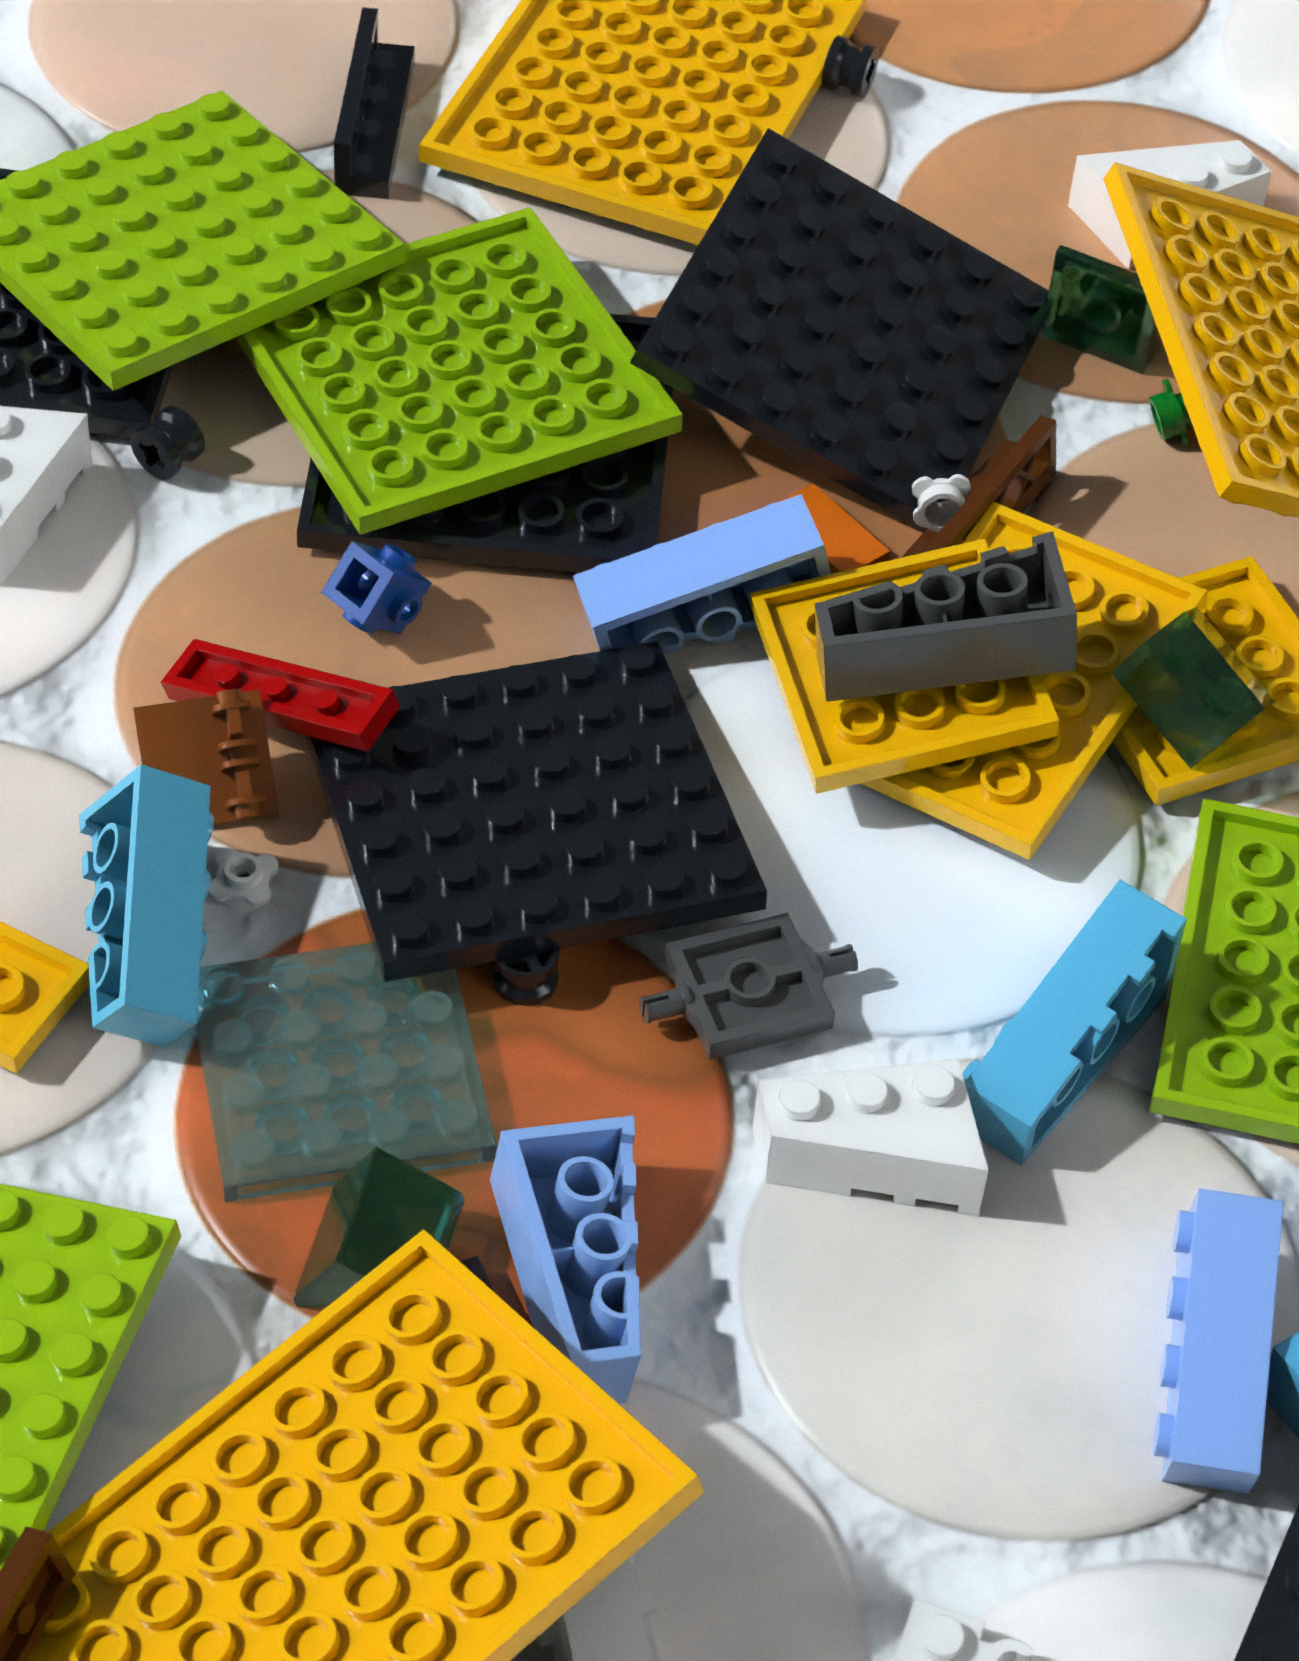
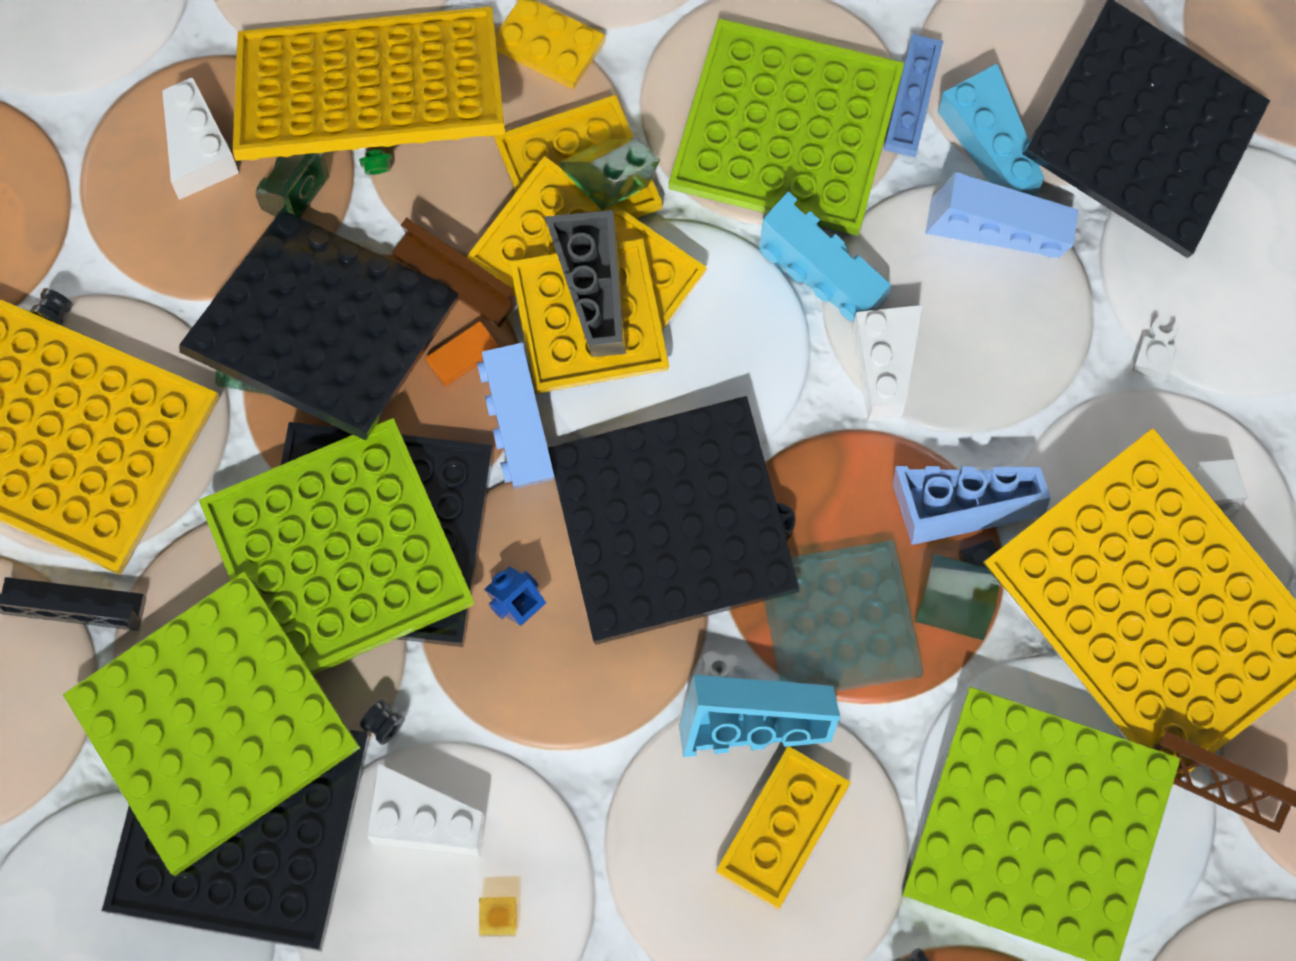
camera: 85 degrees left, 20 degrees up
(217, 744) = (645, 687): dark orange hinge -> none
(291, 694) = (600, 648): red plate -> none
(749, 985) = (789, 414): dark grey plate -> none
(927, 491) = (458, 286): white plate -> none

